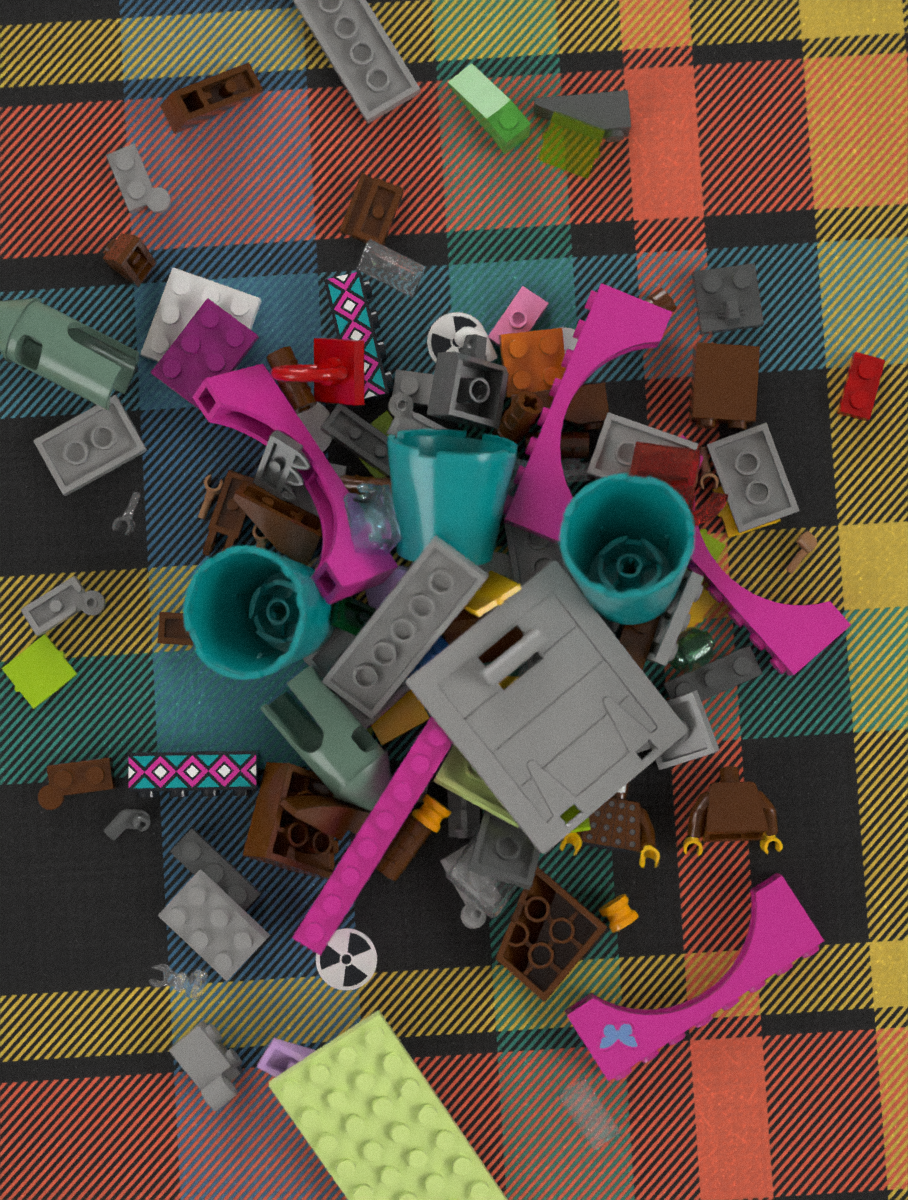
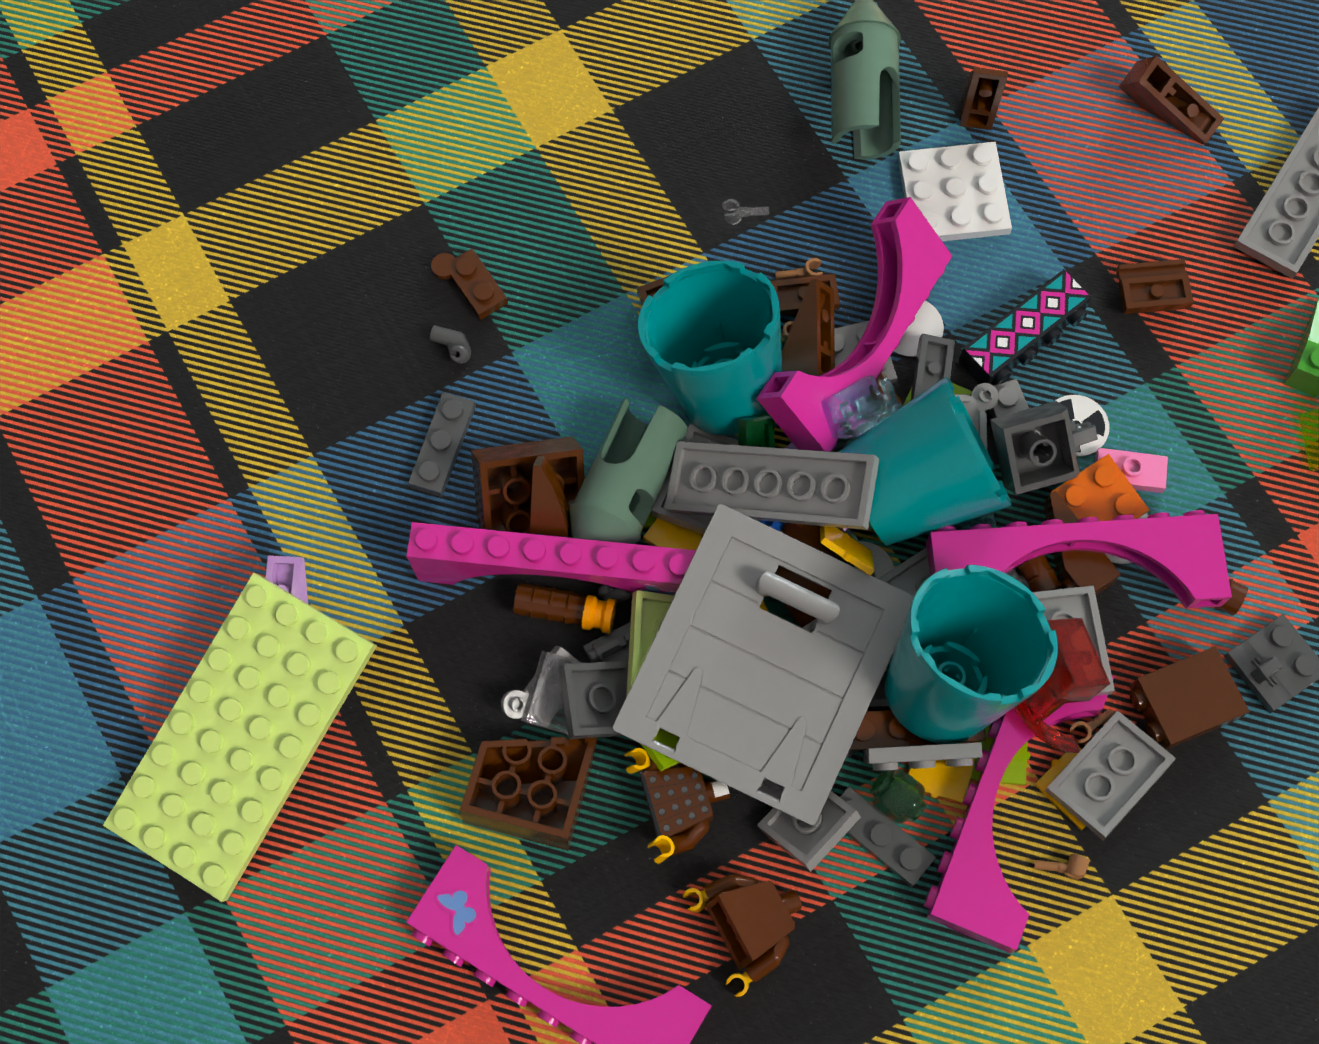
camera: 65 degrees right, 15 degrees down
(39, 671) = (557, 205): lime piece -> none
(61, 605) = (628, 192): light grey hinge -> none
(90, 446) = (790, 149): light grey plate -> none
(135, 182) = (1054, 77): light grey hinge -> none
(192, 985) = (322, 471): clear piece -> none
(194, 772) = (531, 377): brick -> none
(205, 348) = (945, 198): magenta plate -> none
(208, 1063) = (251, 519): light grey hinge -> none
(213, 925) = (390, 463): light grey plate -> none
(280, 466) = (863, 307): dark grey plate -> none
(297, 393) = (951, 290): reddish brown axle -> none
(335, 371) = (983, 317): red tile -> none
(347, 960) = (413, 608): white sticker -> none
(391, 268) = (1111, 328): clear plate -> none
(460, 338) = (1089, 449): white arm -> none
(519, 417) = (1036, 507): reddish brown axle -> none
(589, 1113) = (363, 926): clear plate -> none
(618, 913) = (587, 853): light orange wheel -> none
(861, 386) = (1271, 846): red plate -> none

